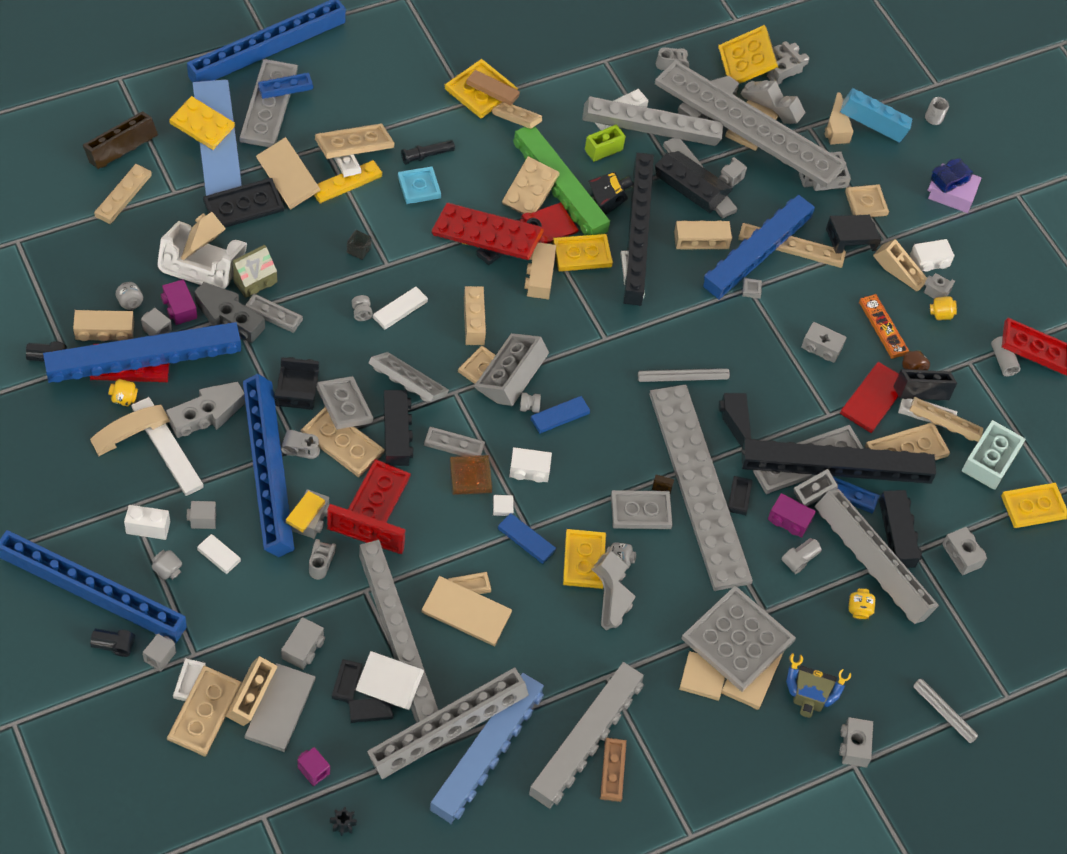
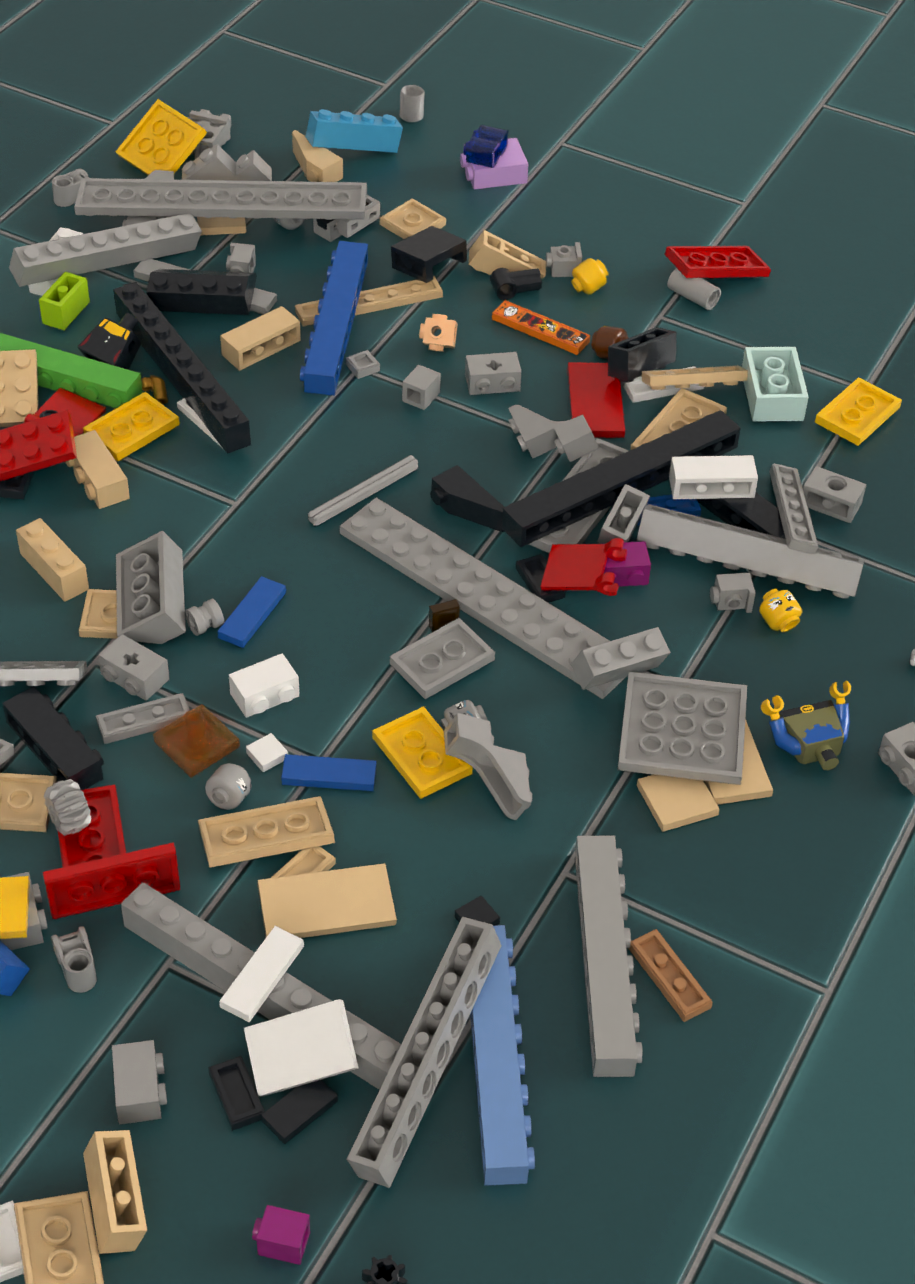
camera: 30 degrees left, 10 degrees down
(280, 708) = (173, 1191): light grey tile -> none
(372, 473) = (67, 807): none -> light grey gear
(397, 629) = (261, 973): none -> white tile
(466, 512) = (228, 786): none -> light grey head
(466, 551) = (265, 831): none -> tan tile
(469, 410) = (133, 667): none -> light grey brick
(539, 670) = (478, 910): none -> black tile
(617, 230) = (156, 386): none -> pearl gold arm
(735, 575) = (619, 657): none -> light grey brick
(762, 503) = (583, 567): none -> red flag
(772, 326) = (421, 387): none -> light grey brick
(798, 558) = (668, 603): light grey piece -> none
(812, 294) = (445, 339): none -> light nougat brick
(828, 416) = (543, 435): none -> light grey arch
(843, 574) = (733, 592): none -> light grey brick
(888, 283) = (509, 283): none -> black piece
(889, 495) = (713, 477): none -> white brick
(924, 545) = (793, 509): none -> light grey tile
(932, 255) = (532, 232): white brick -> none

